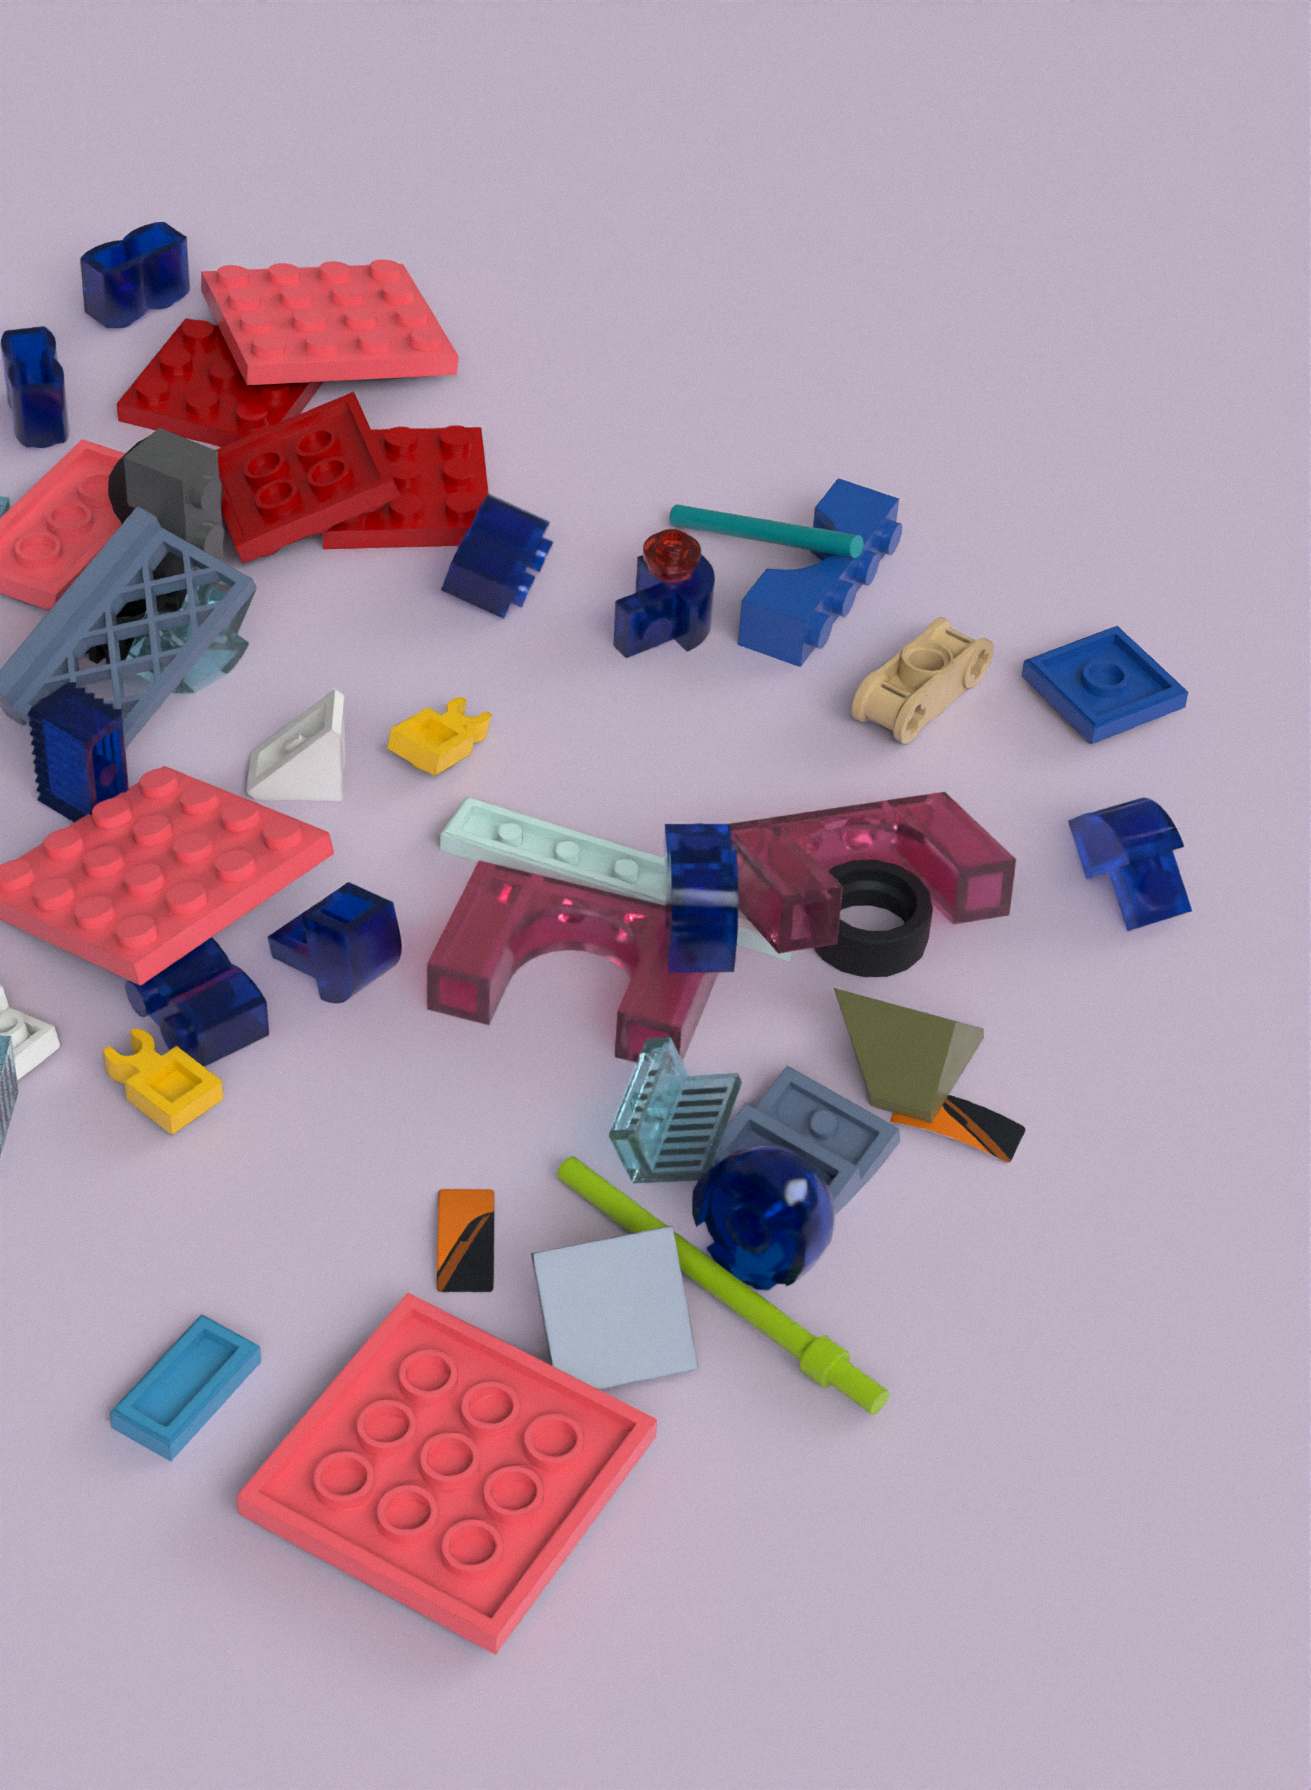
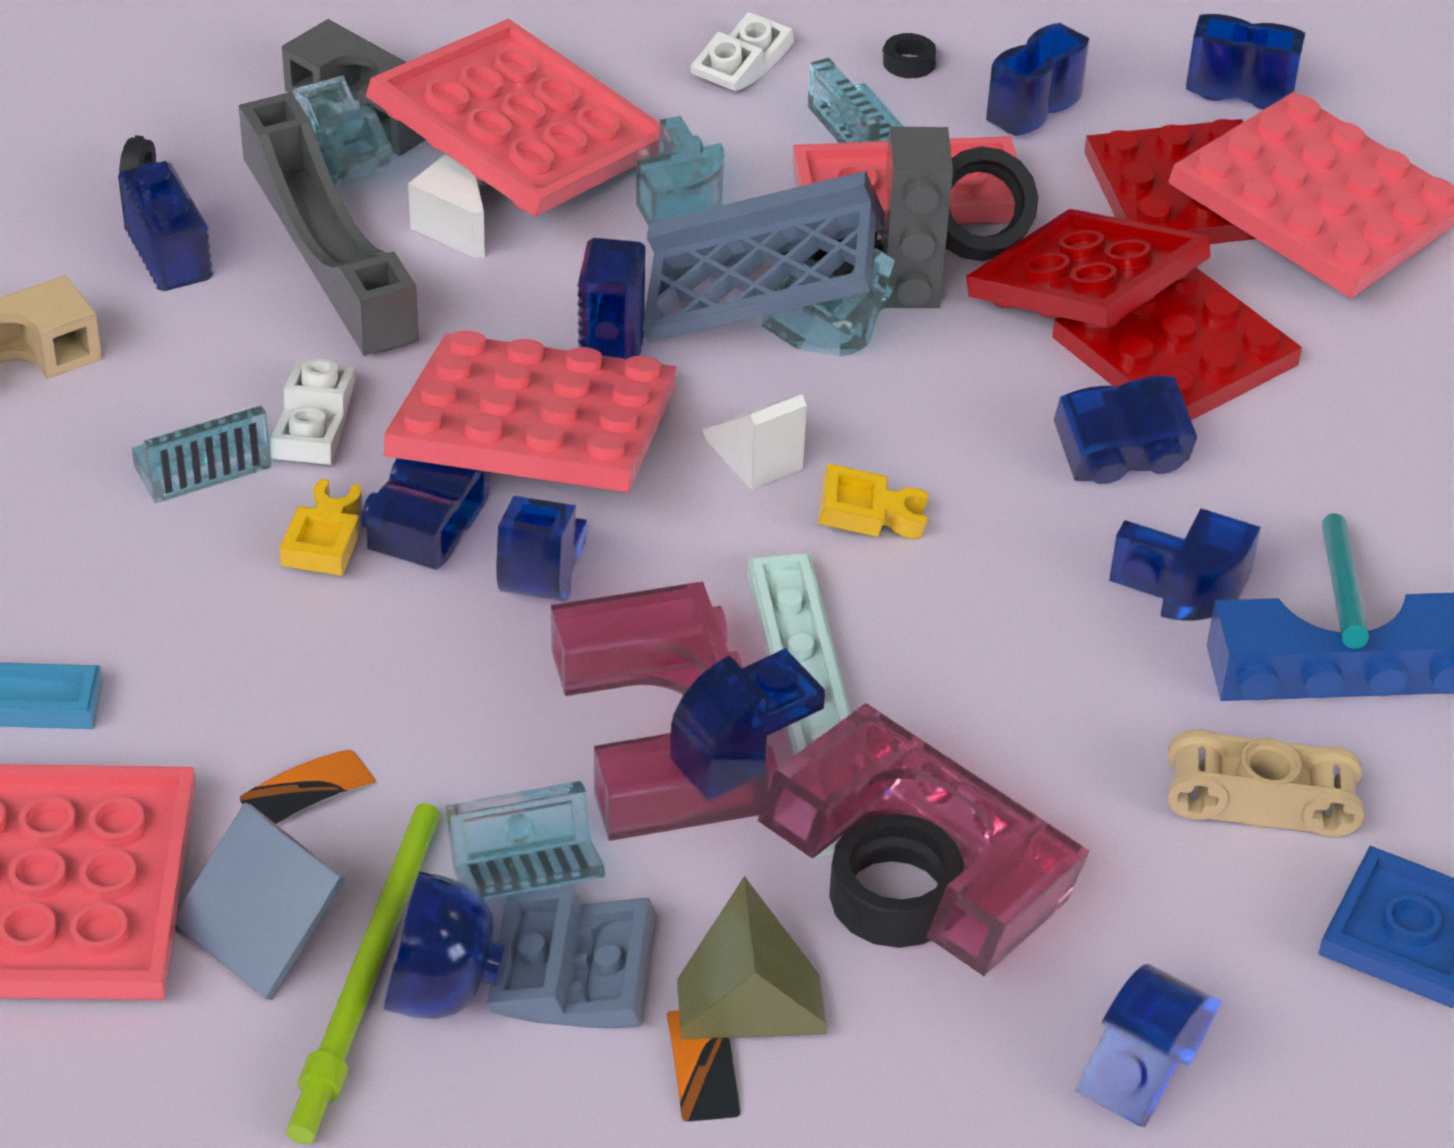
camera: 60 degrees right, 0 degrees up
(671, 555) = (1212, 522): clear red plate -> none

